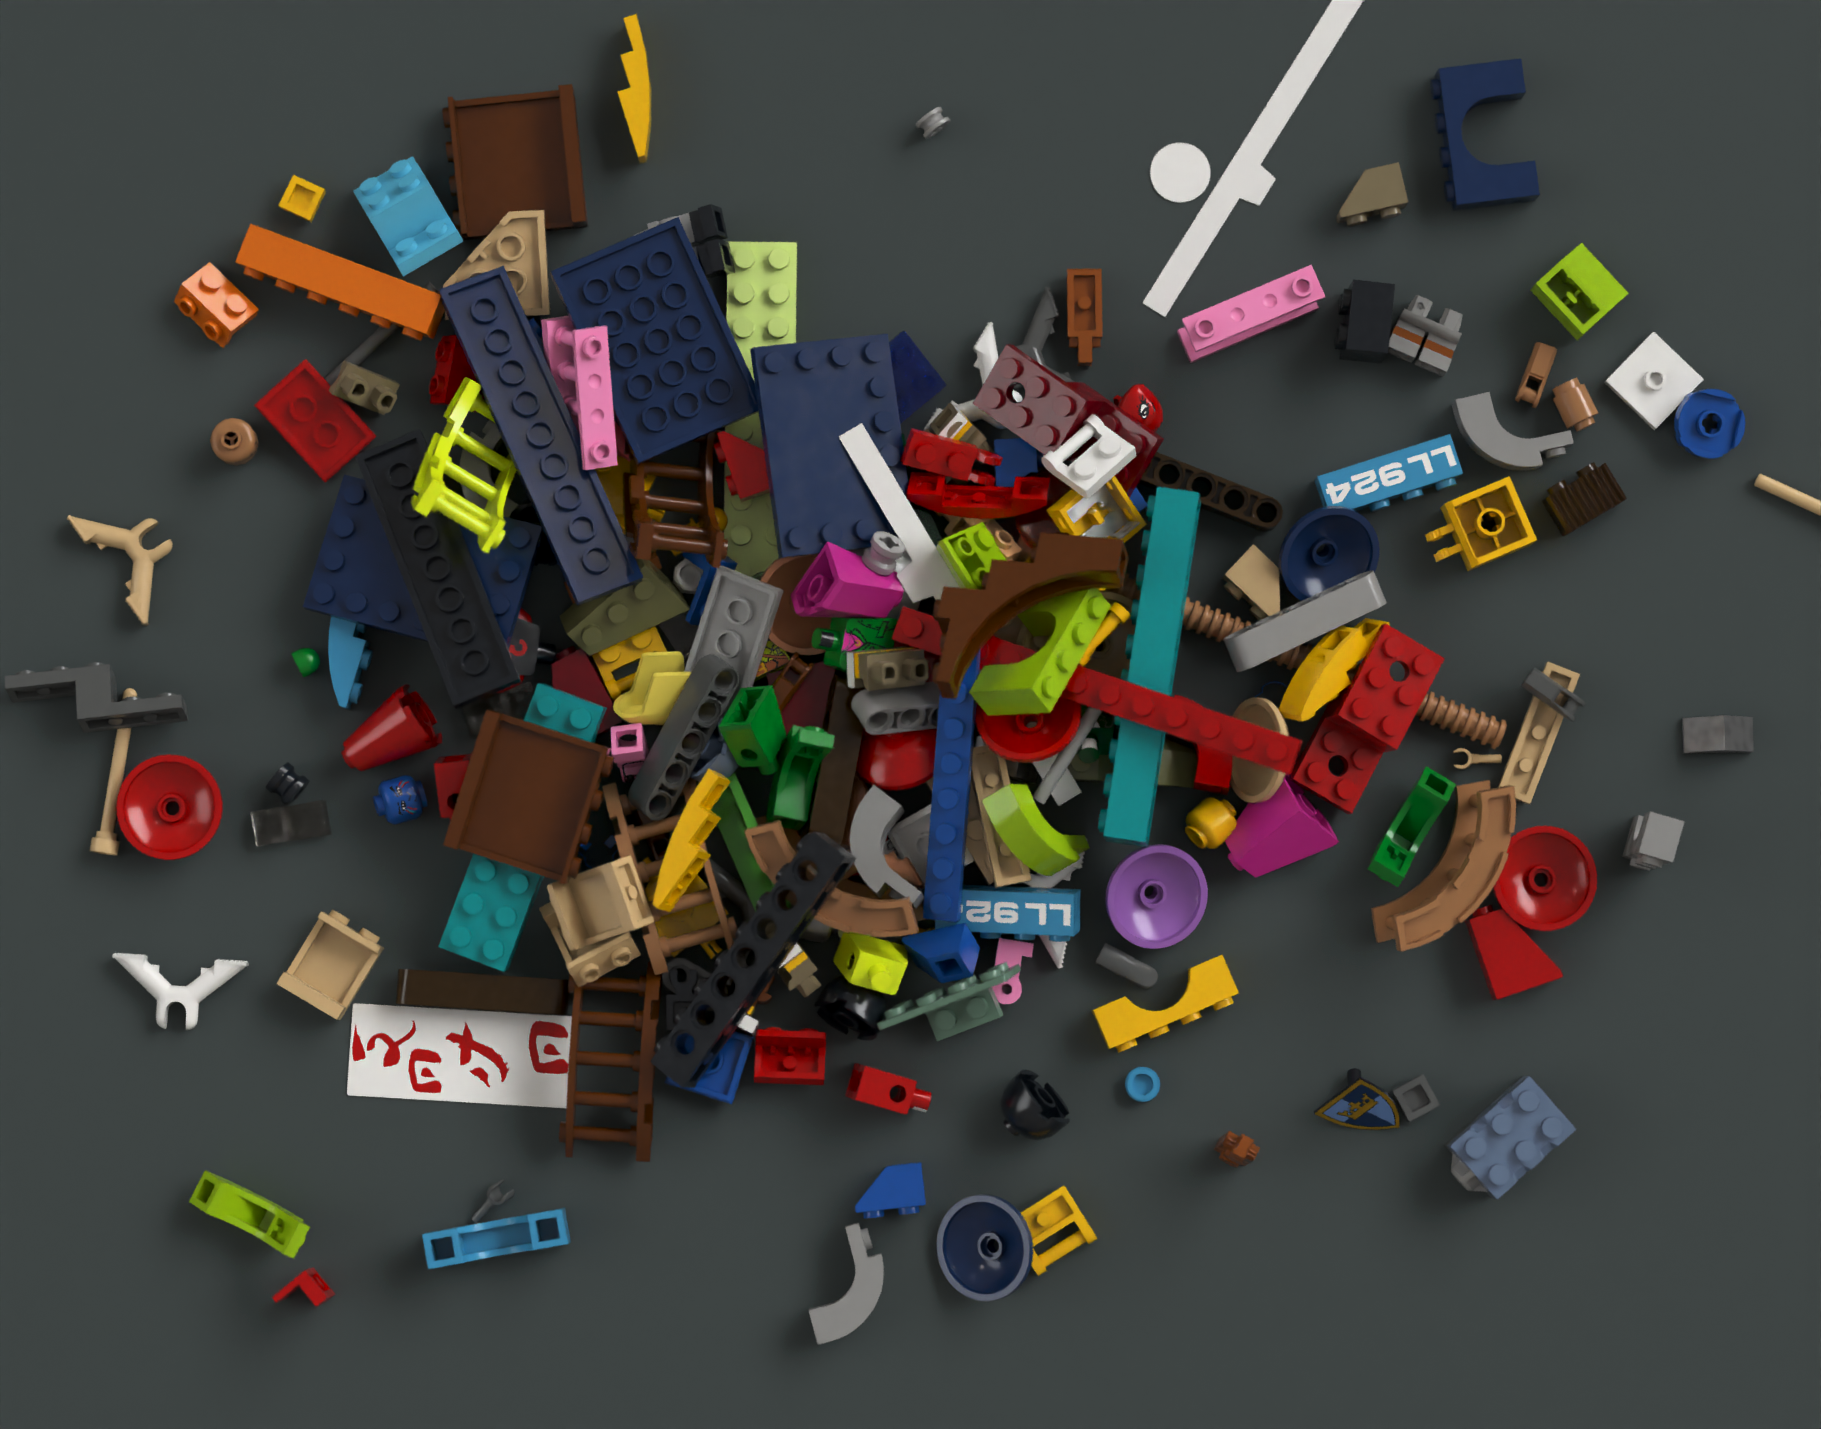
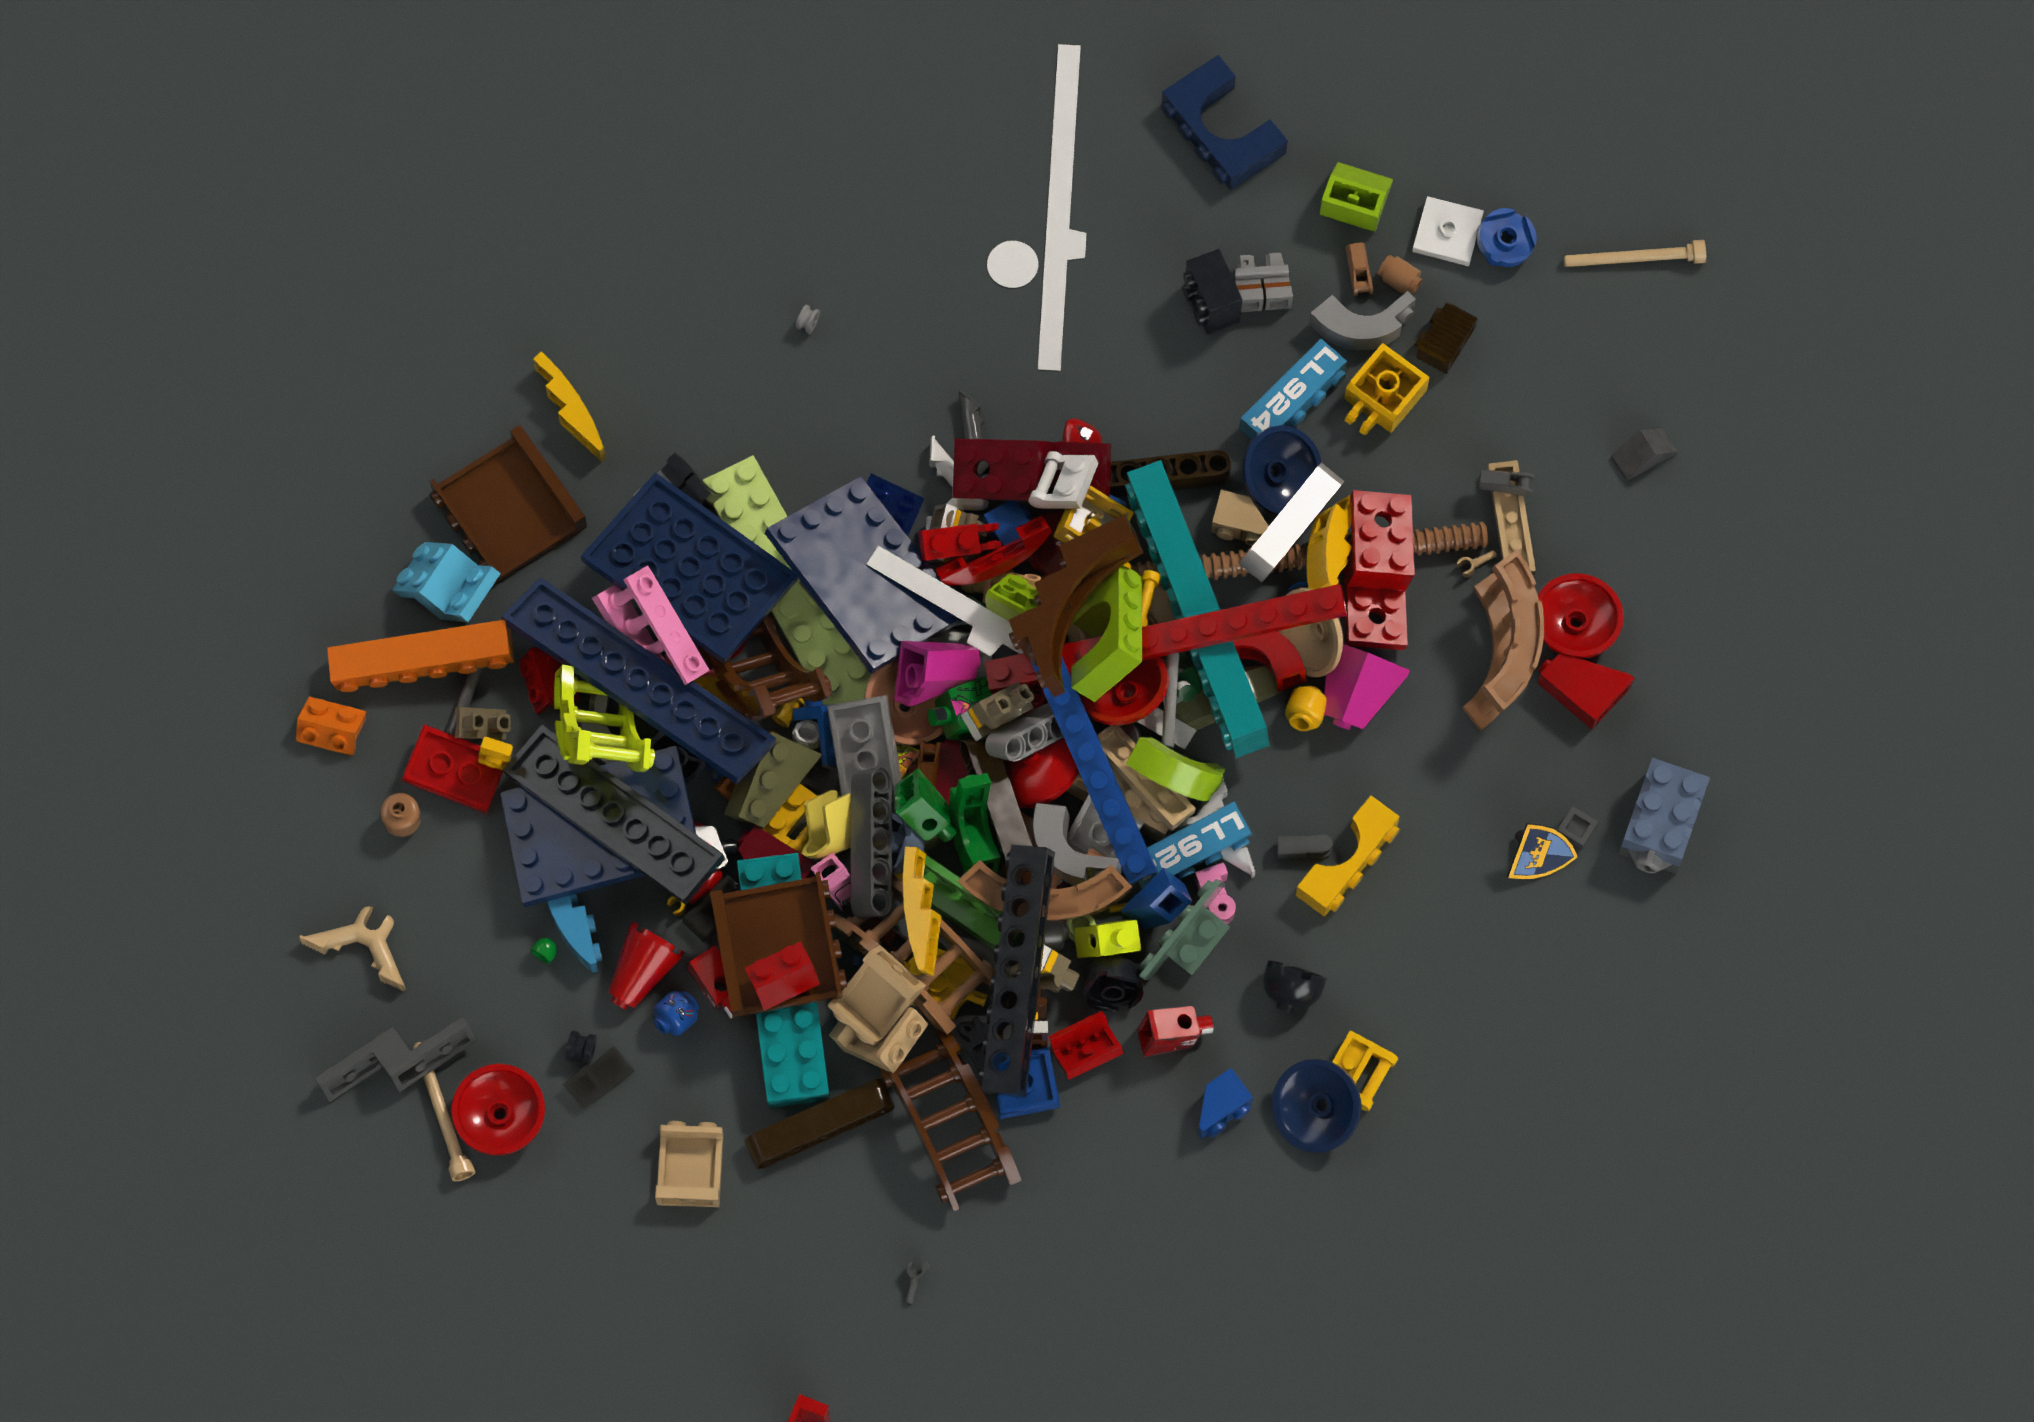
camera: 25 degrees left, 15 degrees down
(189, 995) = (574, 1256): white piece -> none
(250, 1212) = (730, 1386): lime arch -> none
(302, 198) = (356, 614): yellow plate -> none
(355, 435) = (495, 753): none -> yellow plate
(459, 1055) = (829, 1184): white sticker -> none
(496, 1238) = (950, 1290): dark azure arch -> none
(513, 835) = (782, 975): none -> red brick
(522, 250) = (545, 558): tan plate -> none
(745, 464) = (807, 627): red slope -> none
(852, 1309) = (1237, 1218): light grey arch -> none
(883, 553) = (948, 629): light grey wheel -> none
(1084, 312) = (999, 395): dark orange hinge -> none
(1142, 1084) = (1365, 927): dark azure tile -> none
(1173, 906) = (1311, 774): medium lavender dish -> none
(1236, 1149) = (1465, 929): dark orange hinge -> none
(1250, 313) = (1124, 328): bright pink fence -> none
(1376, 192) = (1167, 202): dark tan slope -> none
(1410, 826) = (1456, 629): green arch -> none
(1652, 840) = (1642, 543): light grey arch -> none

